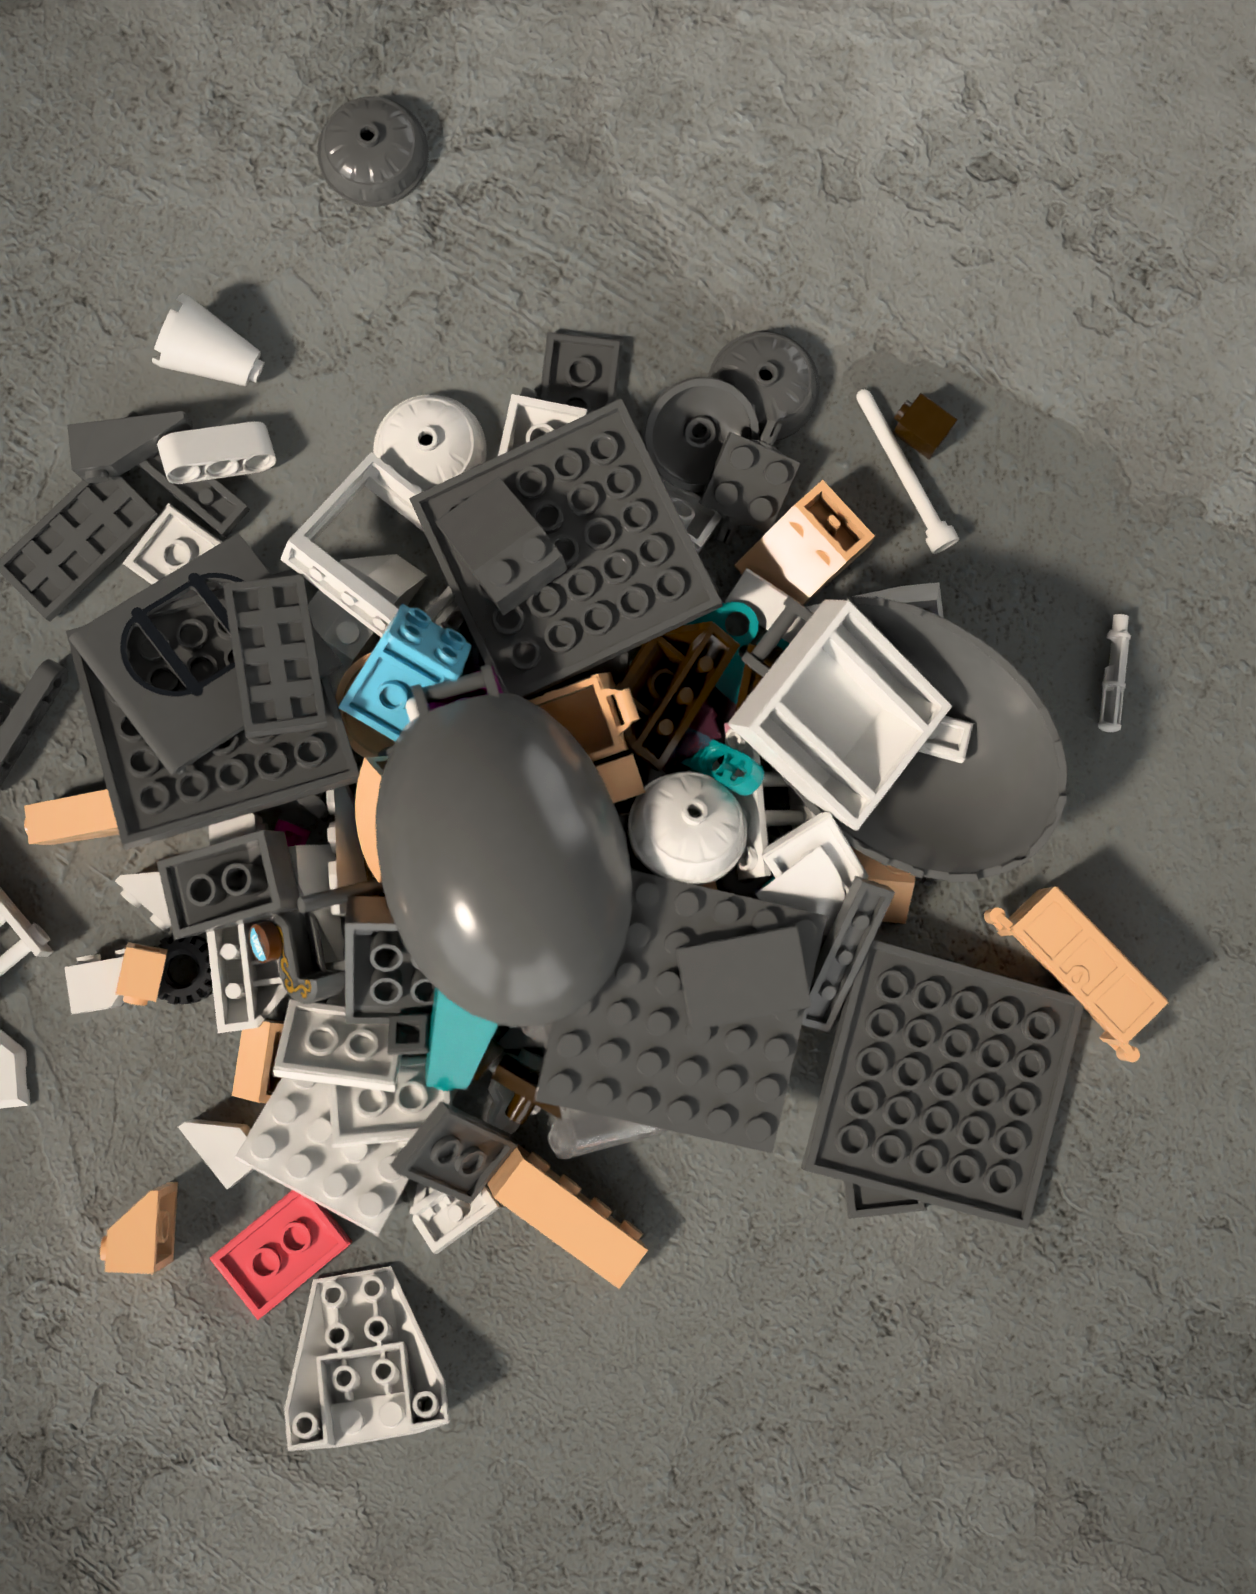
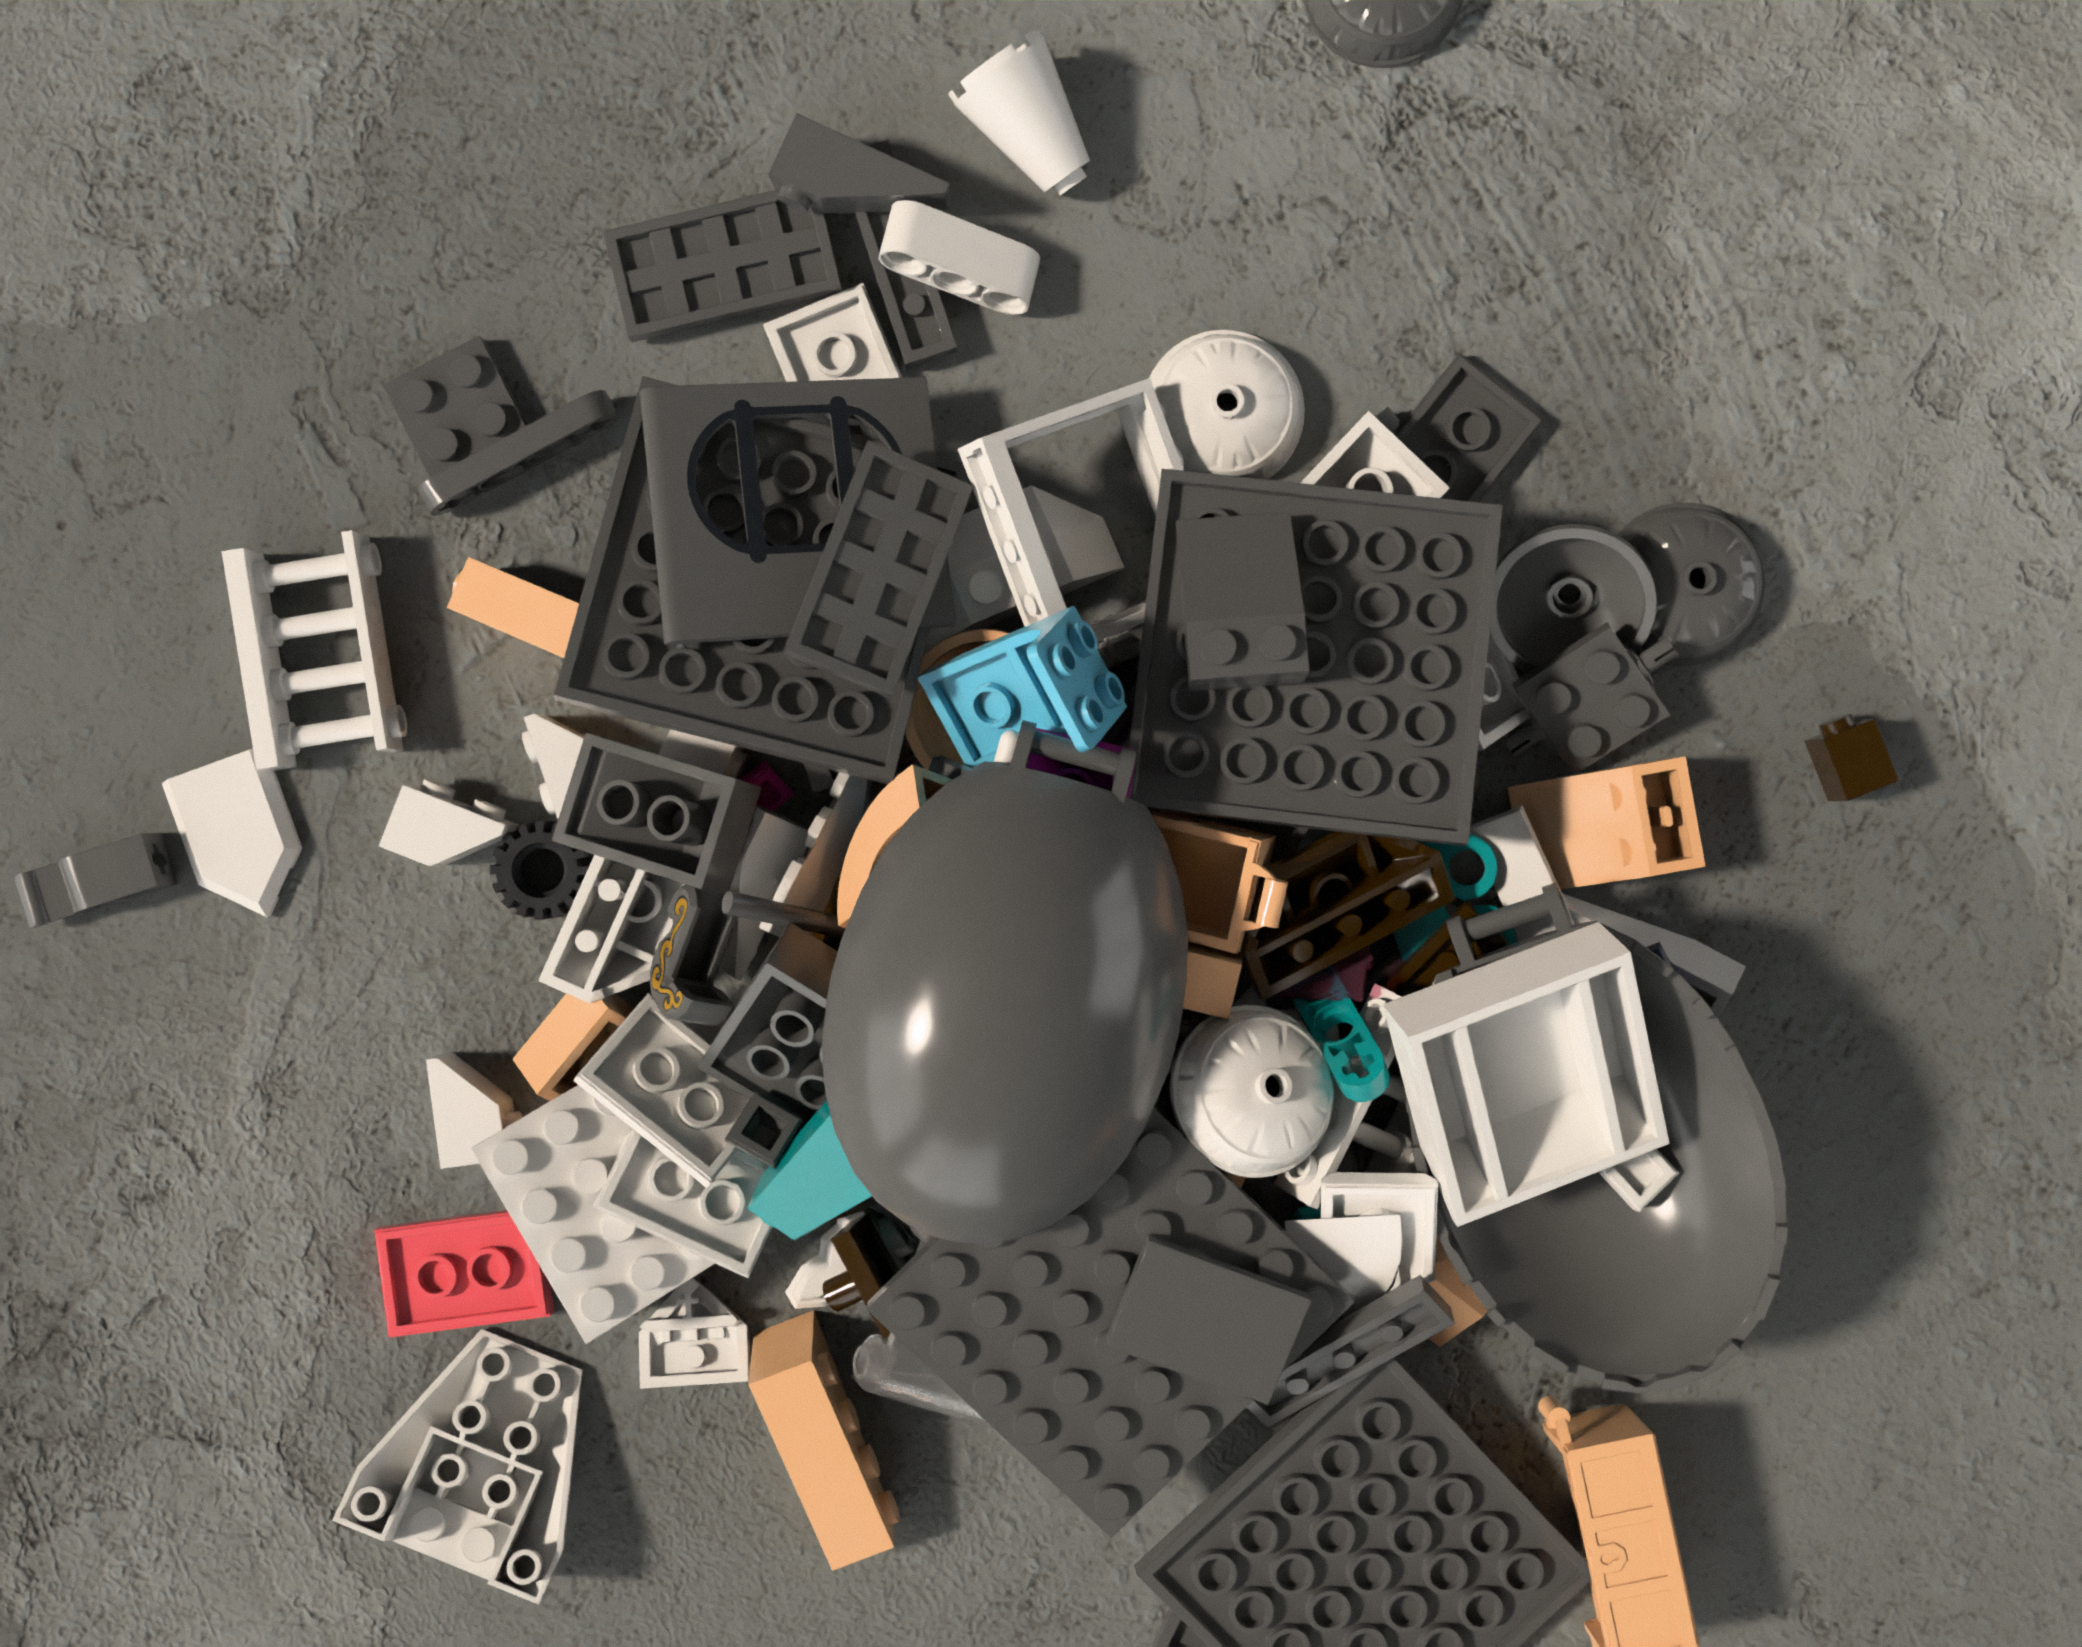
camera: 30 degrees right, 5 degrees up
(141, 973) = (489, 852): light nougat brick -> none
(144, 1235) = (310, 1164): light nougat slope -> none
(265, 942) = (659, 908): reddish brown tile -> none
(454, 1153) = (734, 1300): dark grey tile -> none
(939, 533) = (1782, 902): white piece -> none
(1115, 675) = (1885, 1207): white piece -> none

